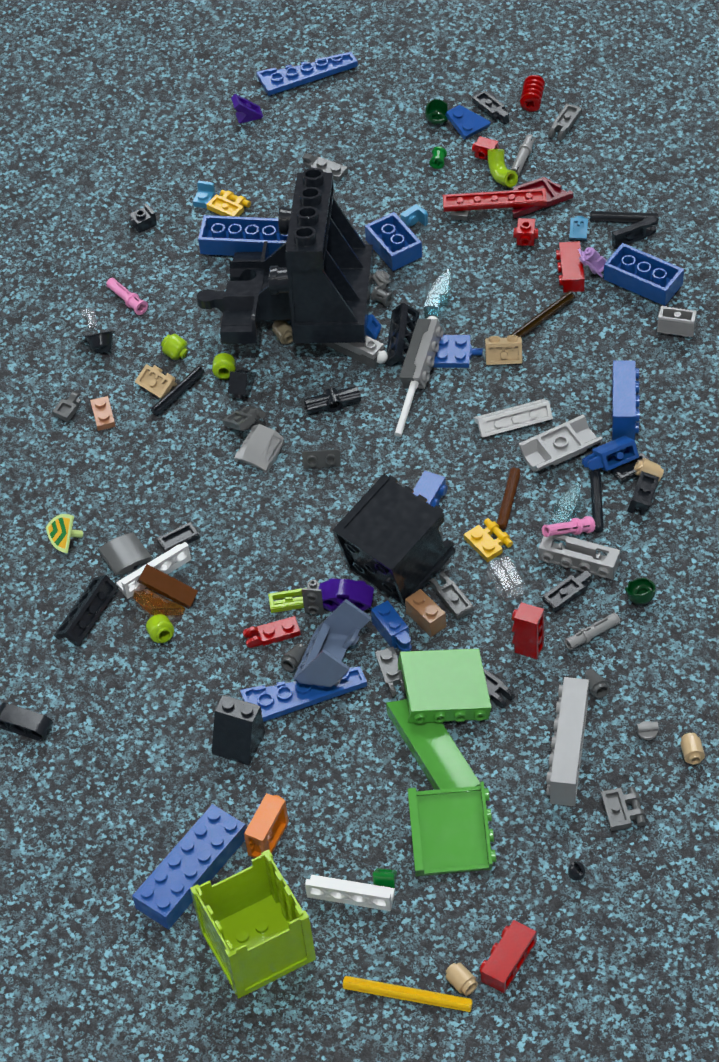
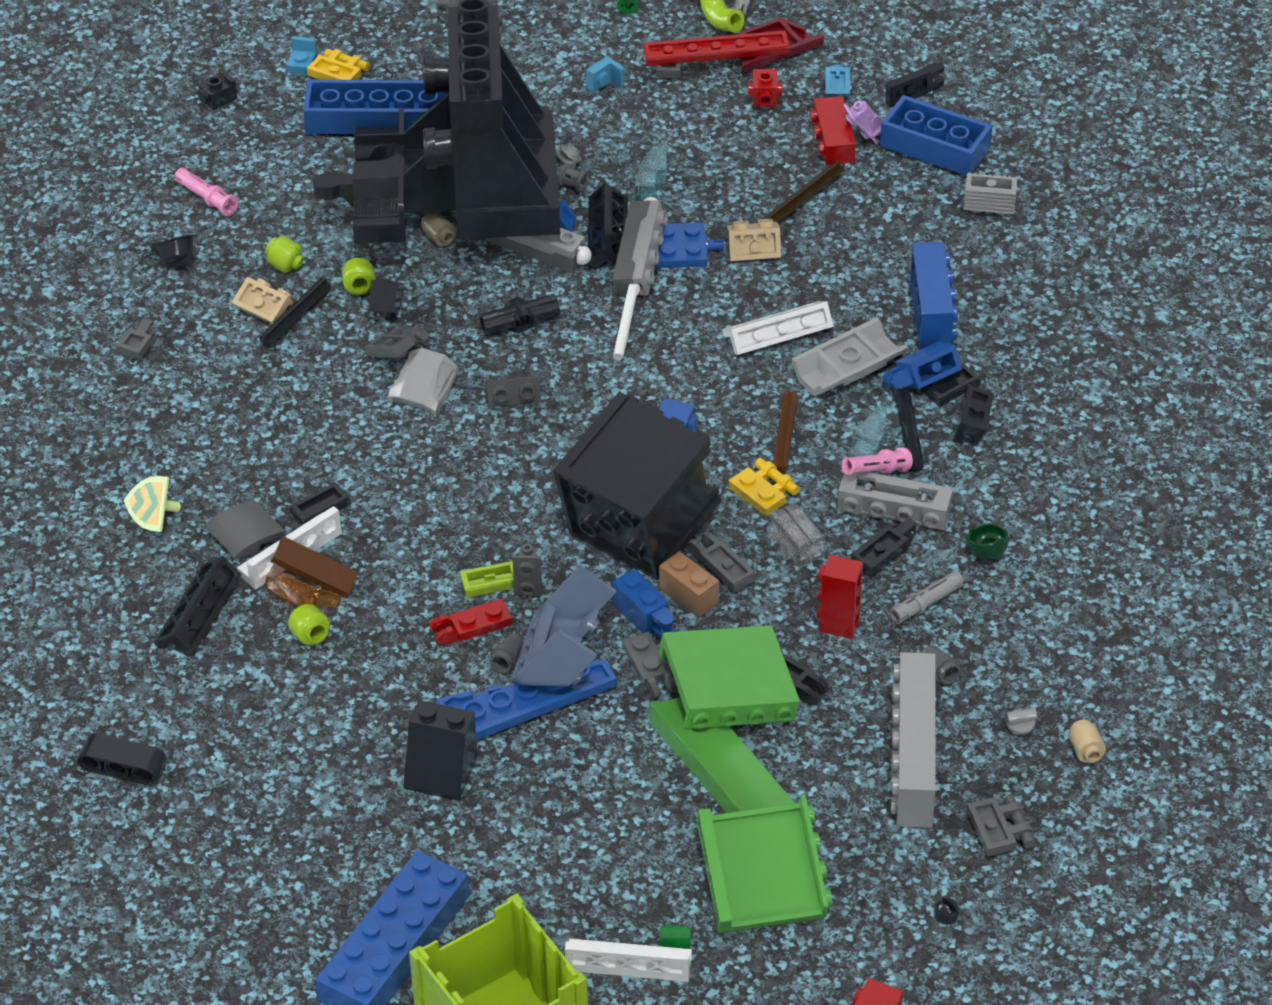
camera: 10 degrees left, 5 degrees down
(91, 316) = (158, 219): clear arm -> none
(102, 413) = (189, 346): plate -> none
(266, 825) = (498, 873): orange window -> none
(338, 590) = (562, 559): dark purple brick -> none
(393, 241) = (581, 105): blue brick -> none
(628, 217) = (891, 65): black axle -> none
(649, 467) = (976, 379): tan brick -> none

